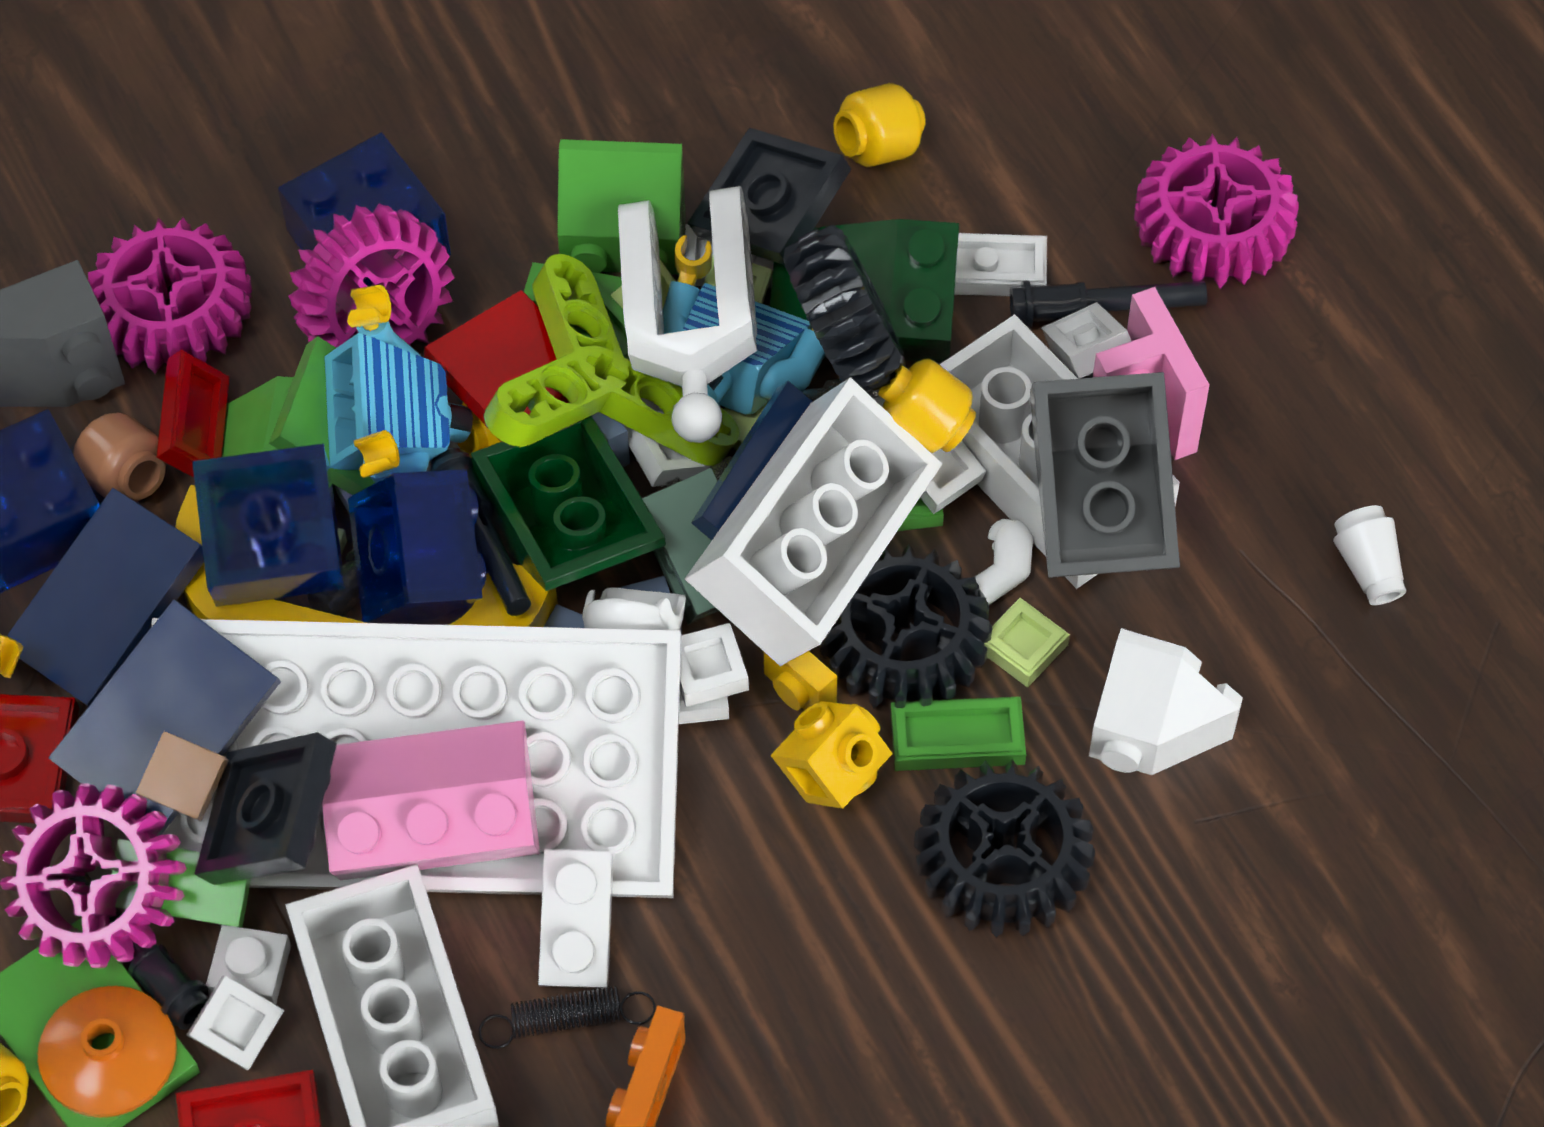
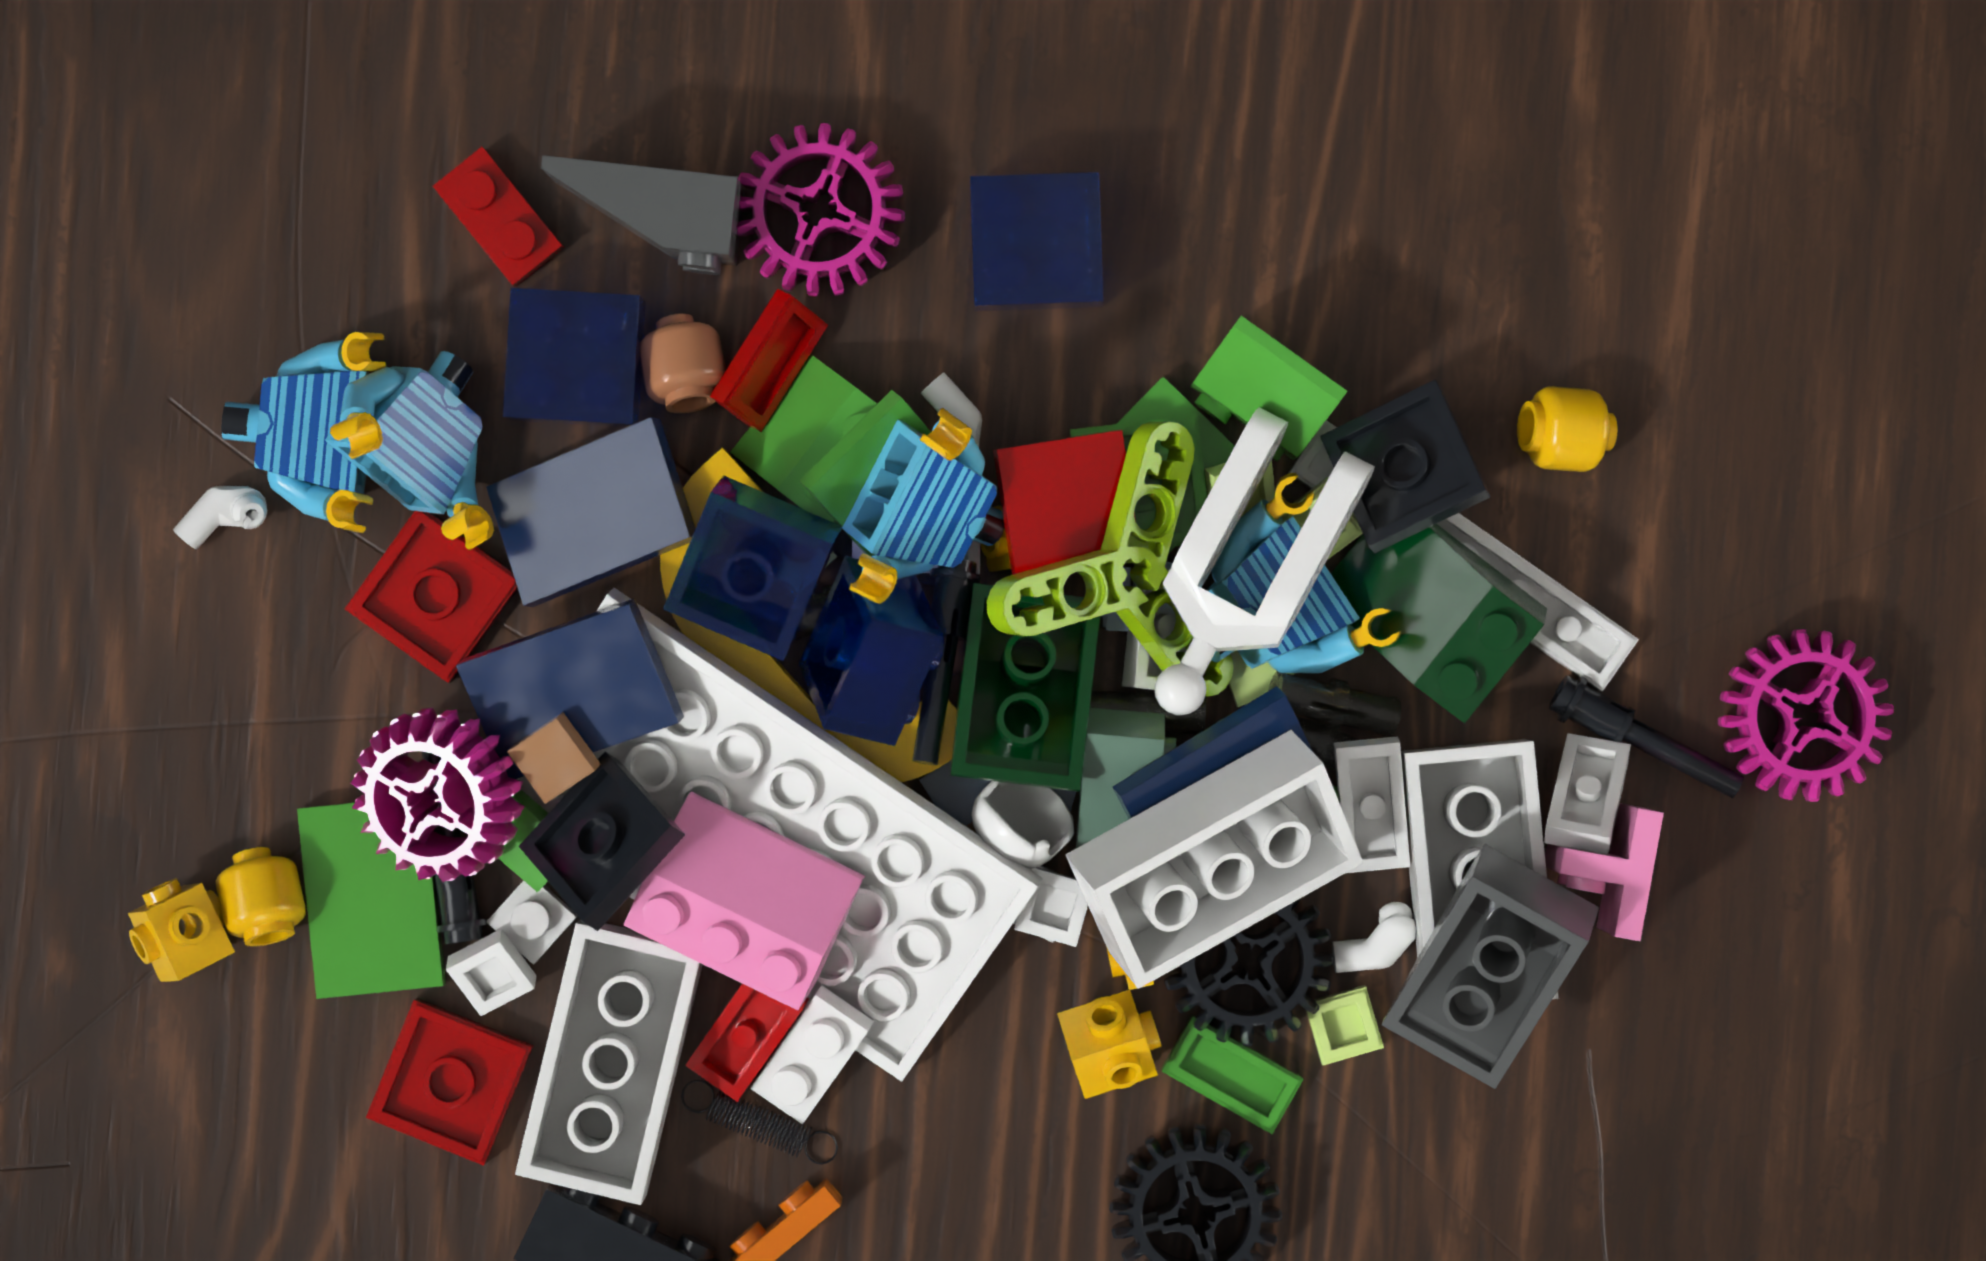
camera: 30 degrees right, 30 degrees up
(112, 1078) = (409, 924): orange dish -> none
(387, 250) = (992, 341): dark pink gear -> none
(504, 930) = (742, 1040): none -> red plate
(844, 308) = (1365, 685): black gear -> none
(930, 404) = (1384, 806): yellow head -> none
(1159, 707) = (1394, 1177): white slope -> none
(1371, 552) = (1690, 1137): white cone -> none

